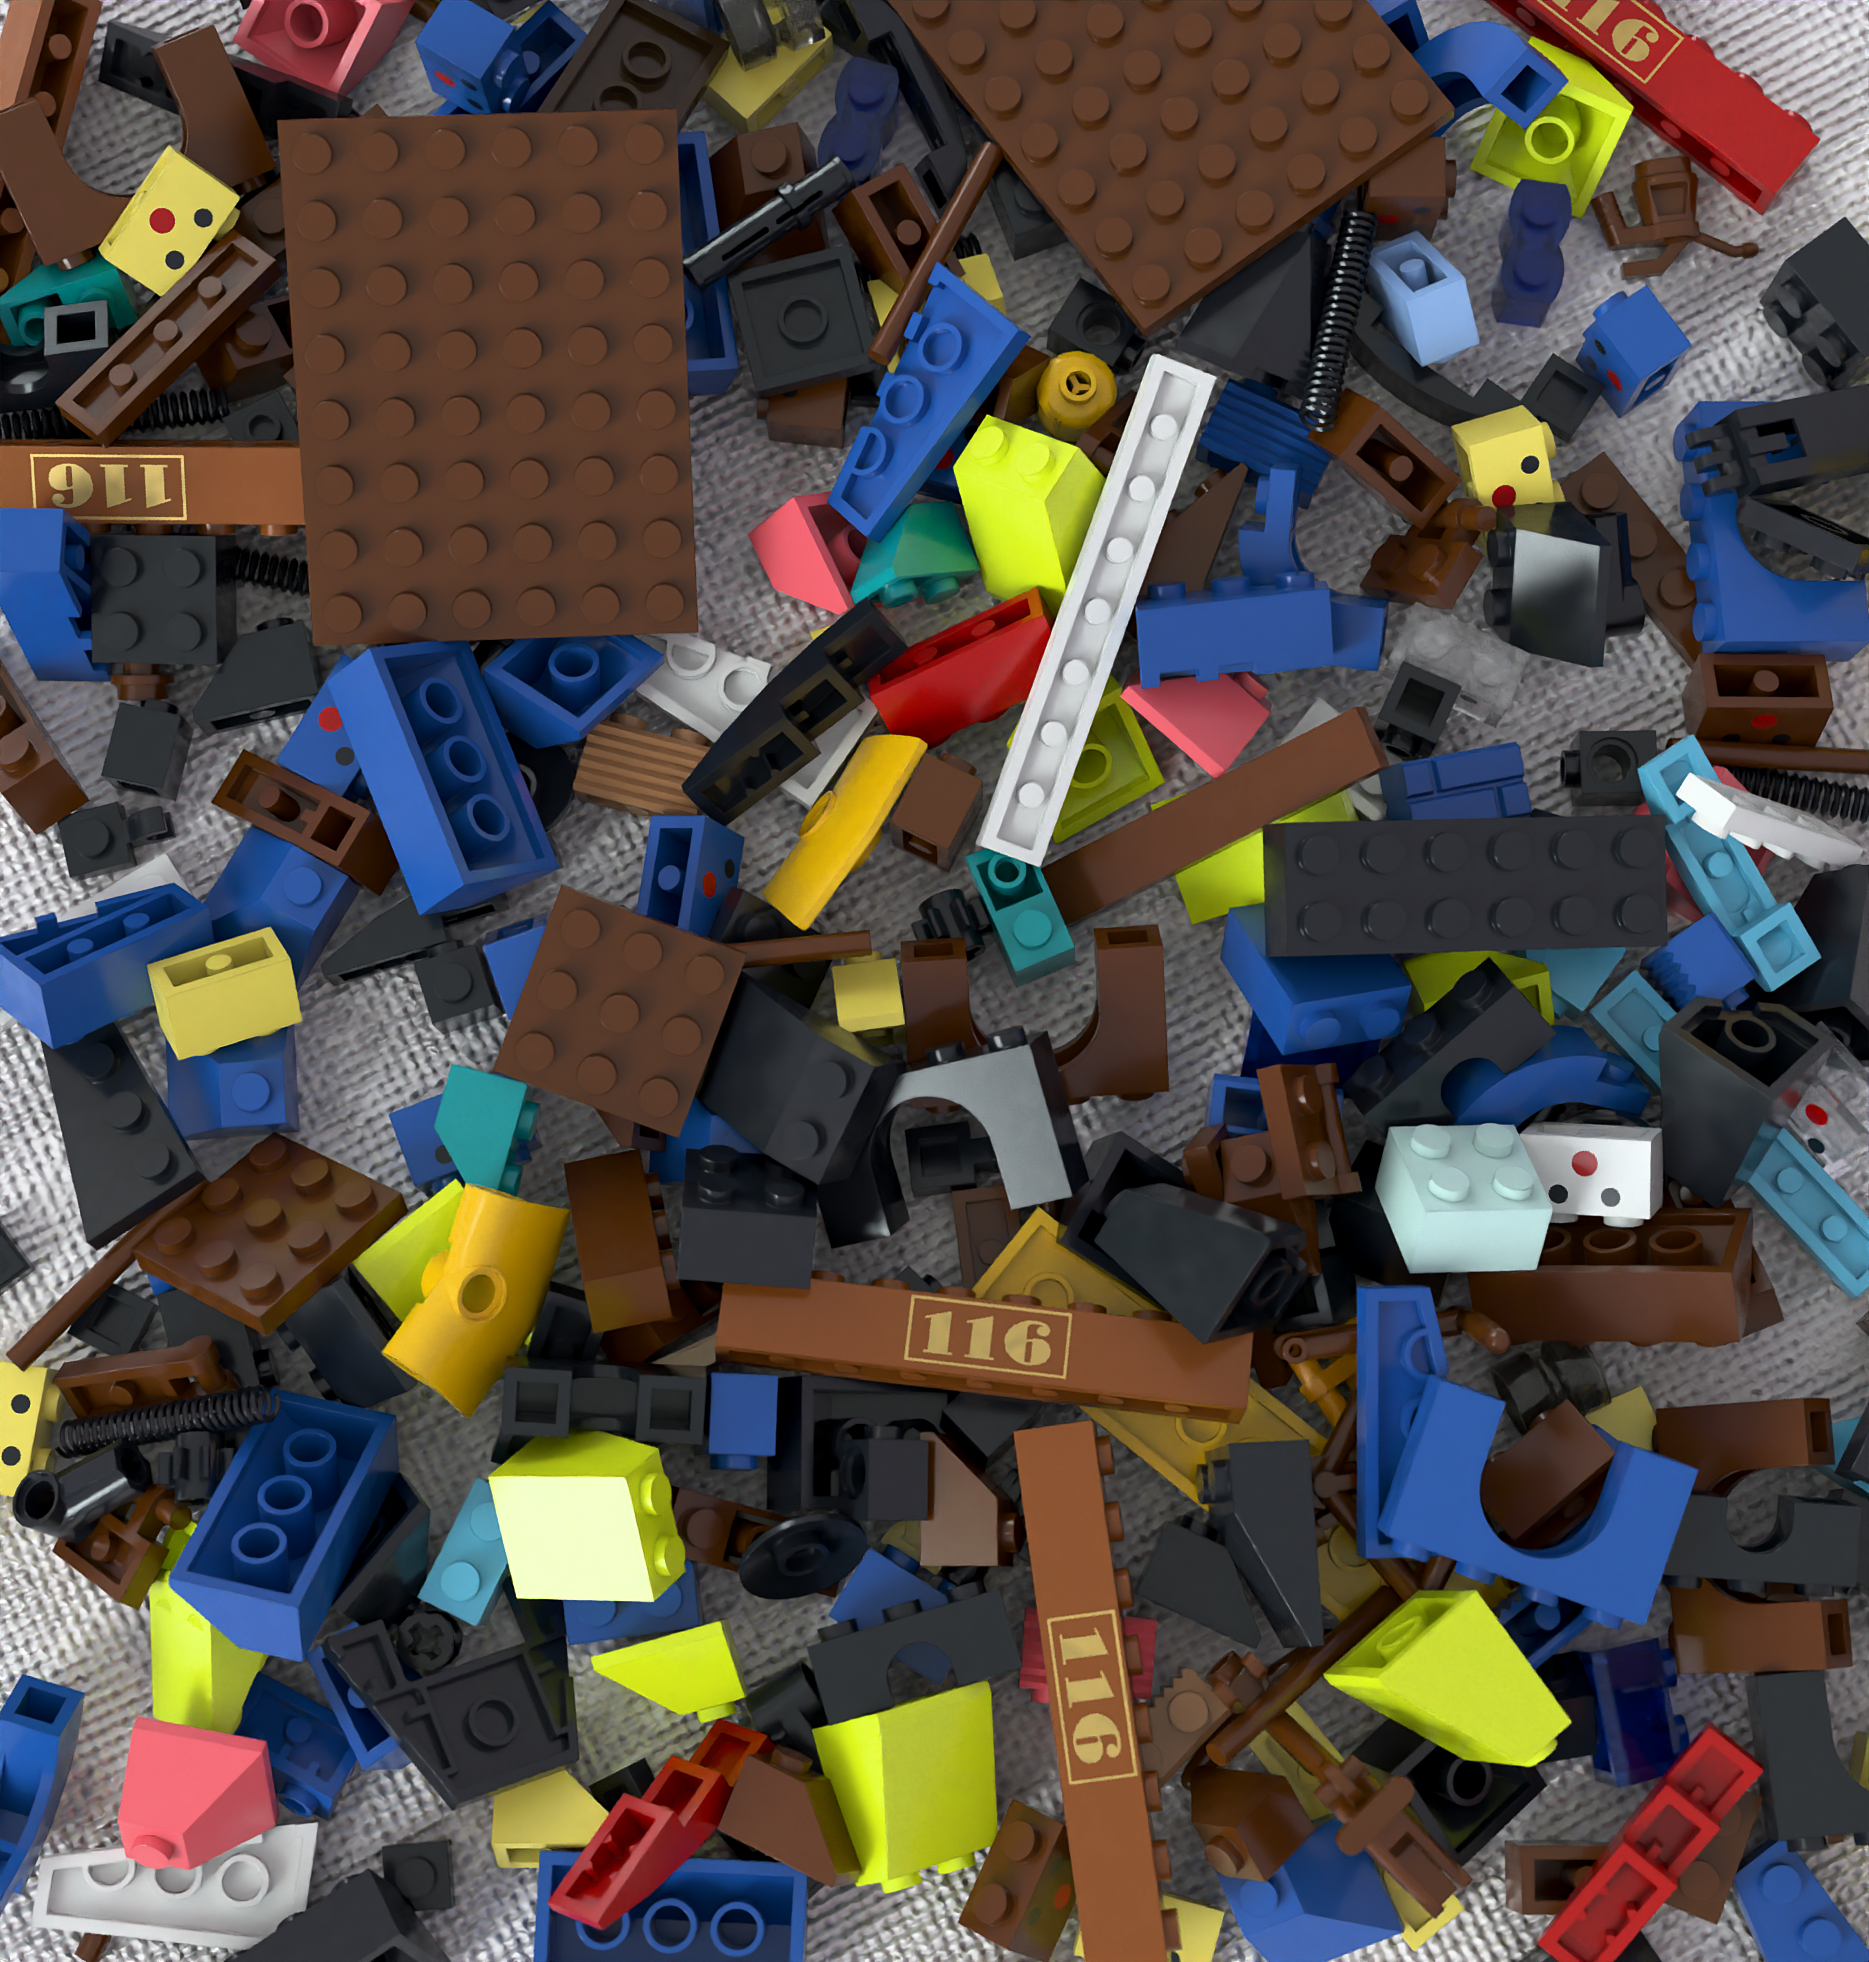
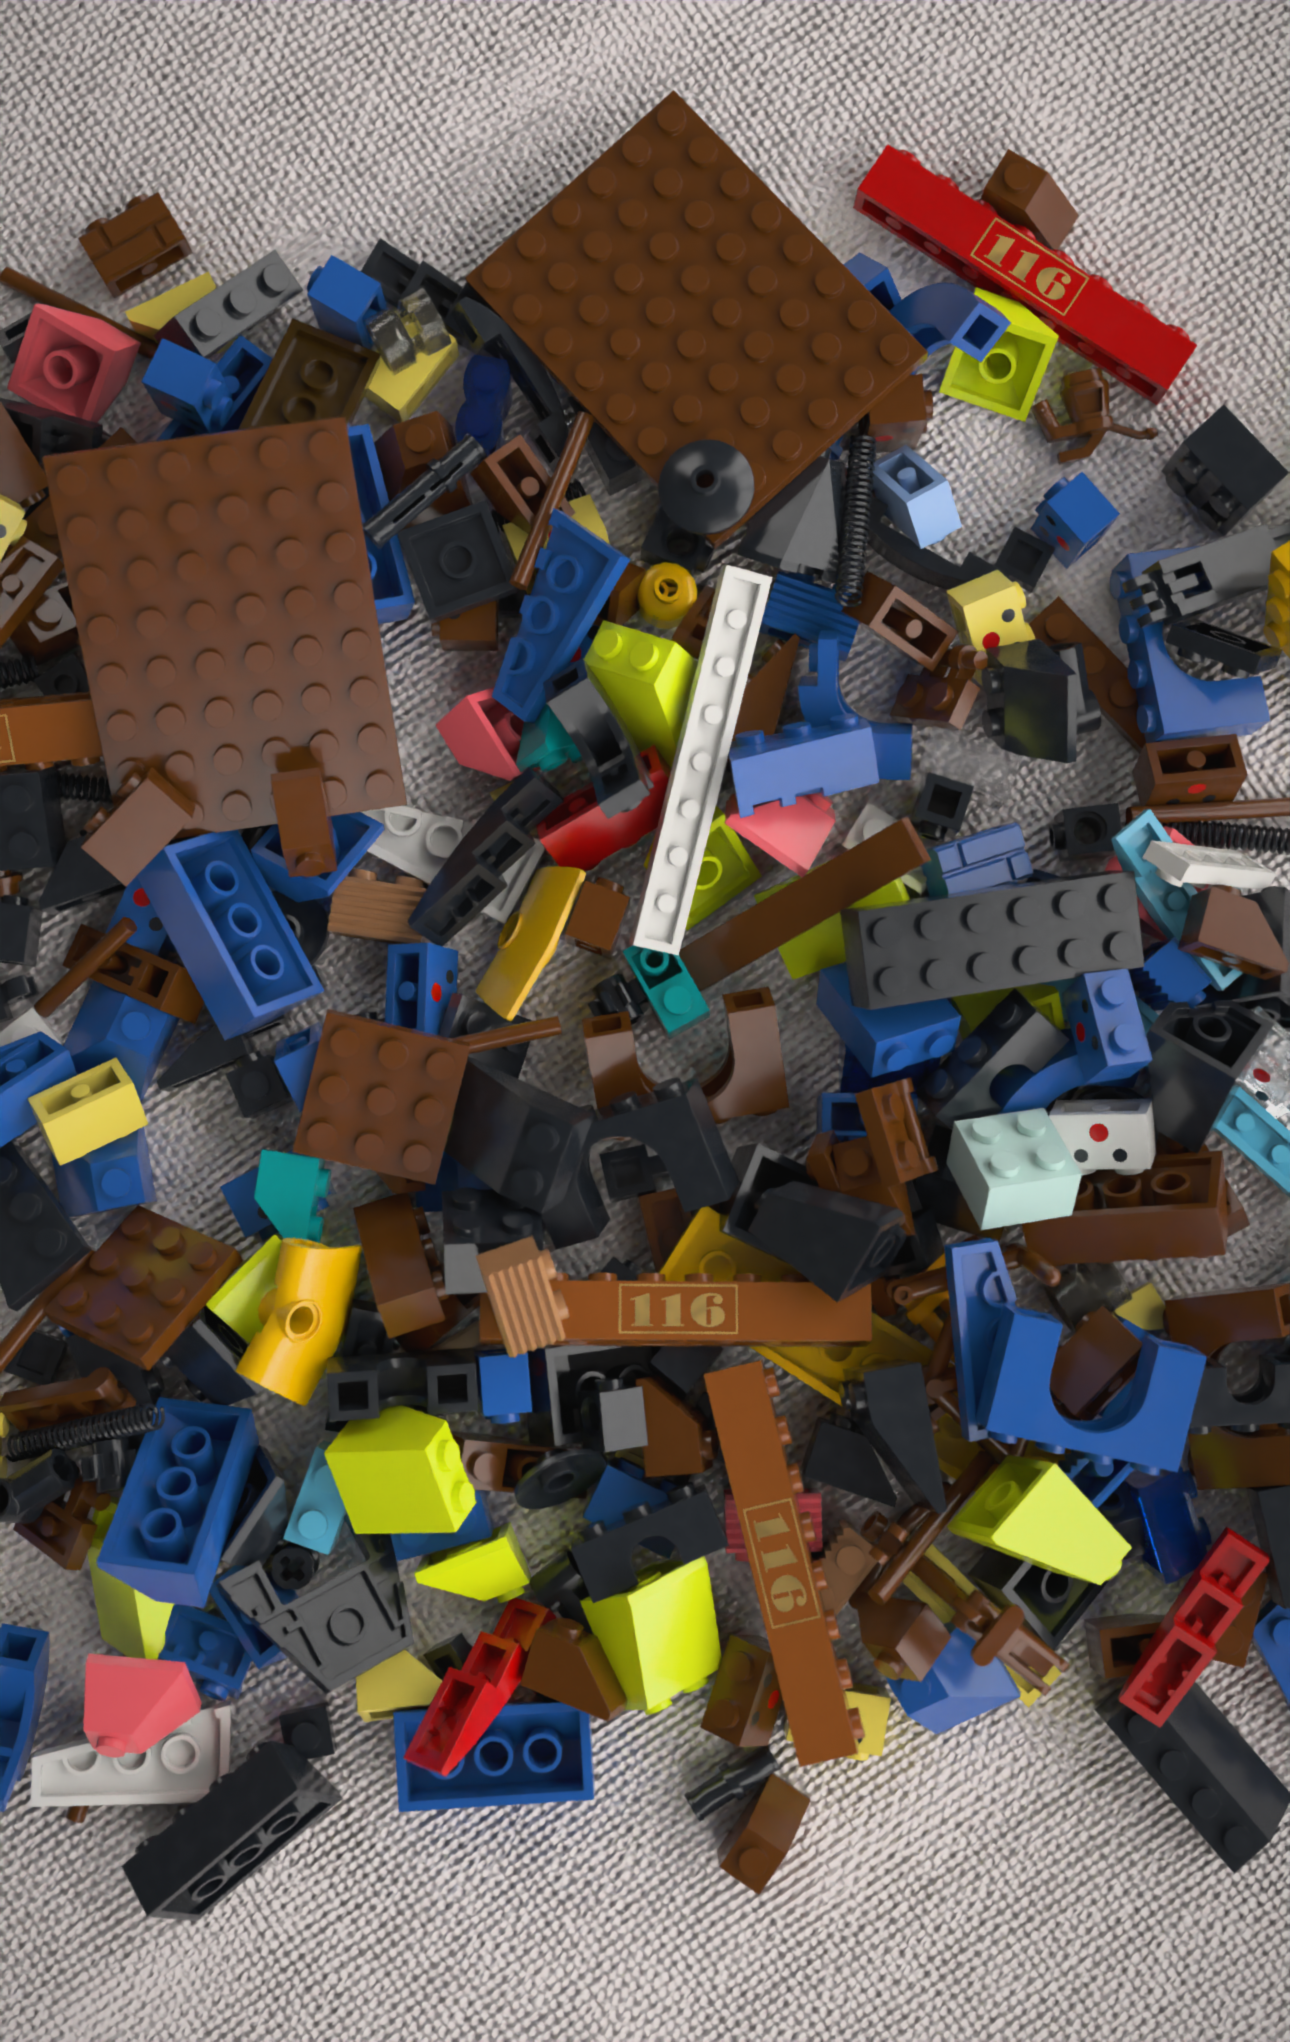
camera: 15 degrees left, 5 degrees up
(243, 804) = (85, 967): none -> reddish brown bar
(338, 616) = (137, 825): none -> reddish brown brick
(559, 636) = (304, 822): none -> reddish brown slope
(779, 1288) = (522, 1297): none -> medium nougat brick
(870, 999) = (563, 1063): light yellow slope -> none
(966, 565) = (601, 737): none -> black arch
(1148, 280) = (711, 508): none -> black dish
(1531, 253) = (991, 452): clear blue brick -> none
(1608, 1019) = (1106, 1026): none -> blue brick
(1790, 913) = (1232, 933): none -> reddish brown slope

